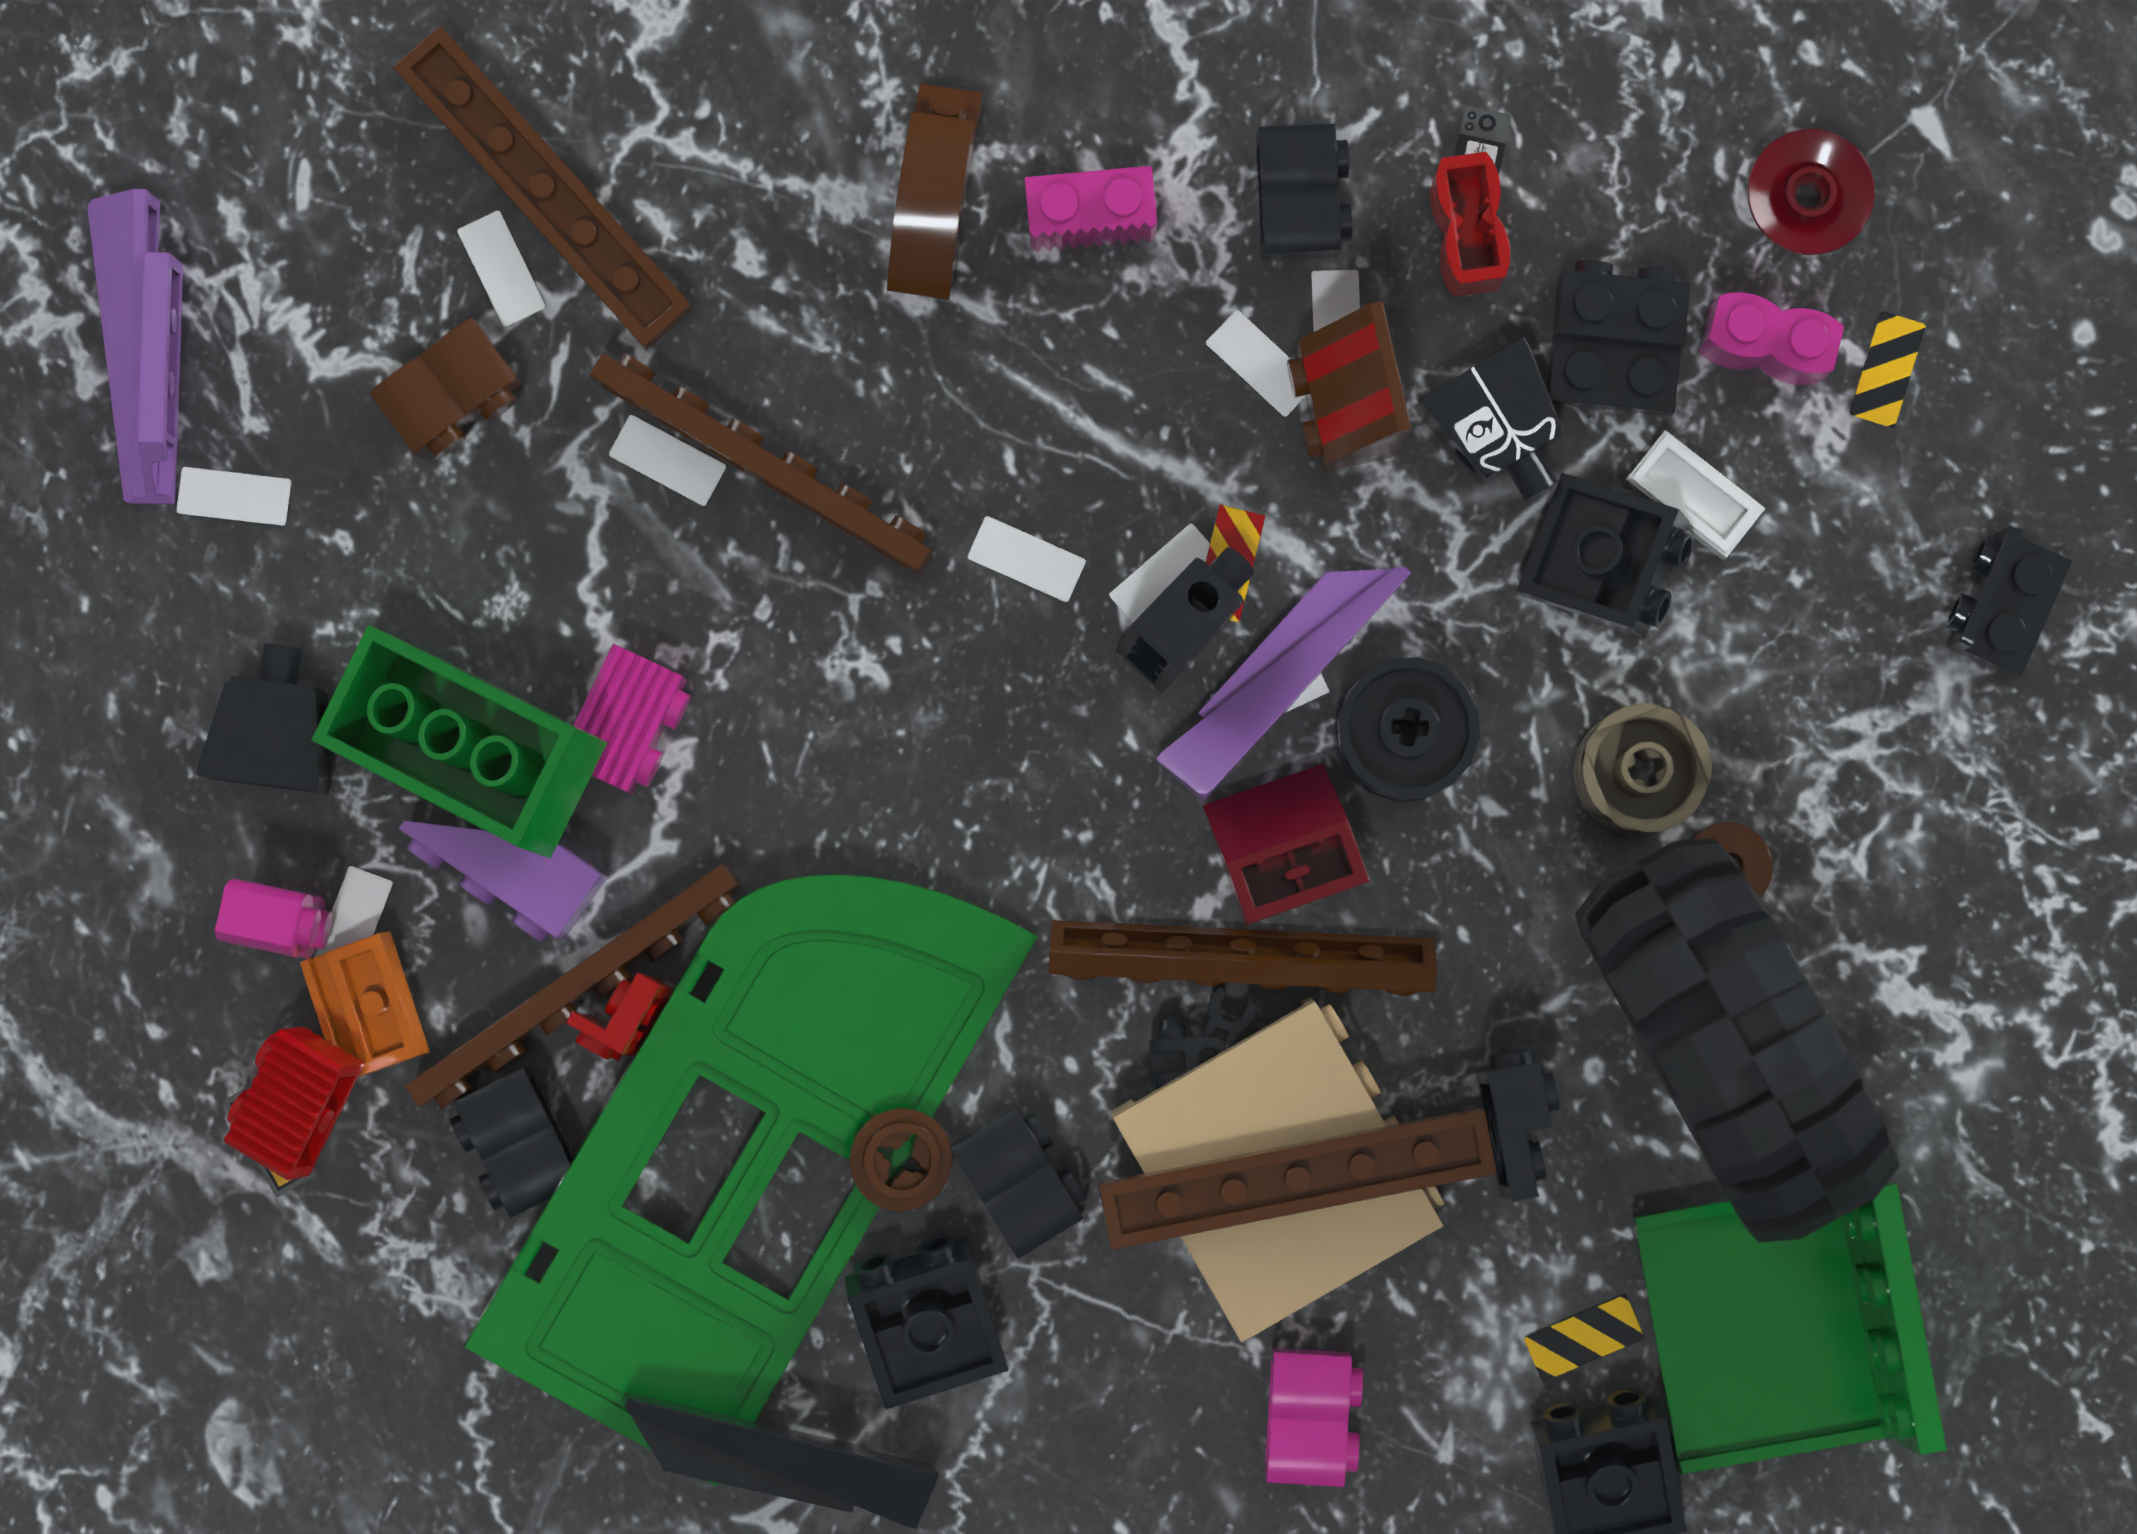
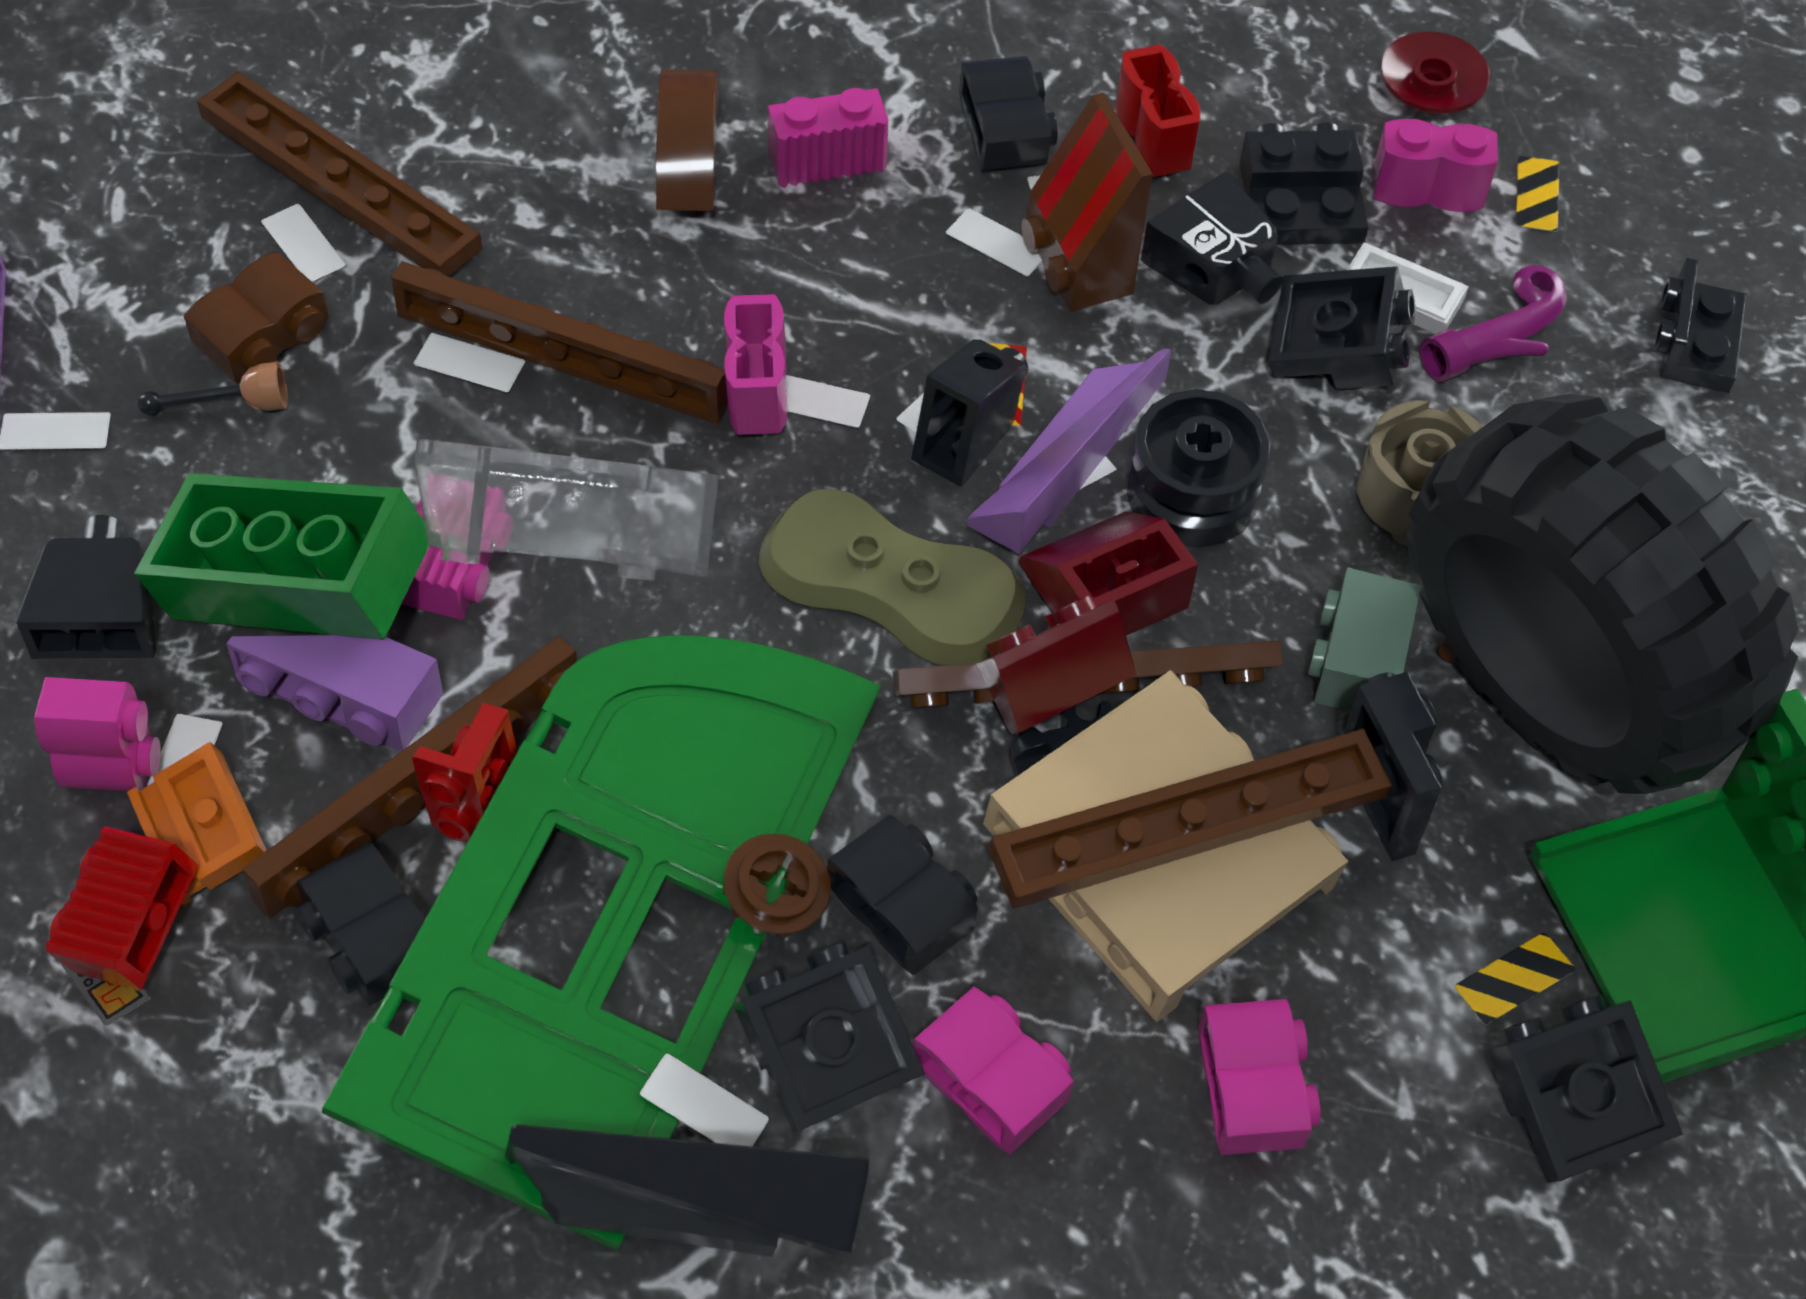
camera: 15 degrees left, 30 degrees down
(447, 480) = (260, 386): none -> hinge
(735, 697) = (564, 508): none -> clear windscreen
(806, 1364) = (703, 1104): none -> white sticker
(959, 558) = (755, 364): none -> dark pink brick
(1071, 1374) = (994, 1069): none -> dark pink brick
(1110, 828) = (928, 594): none -> olive plate
(1198, 987) = (1059, 667): none -> dark red slope
(1528, 965) = (1367, 636): none -> sand green brick
(1782, 582) = (1454, 351): none -> magenta plant

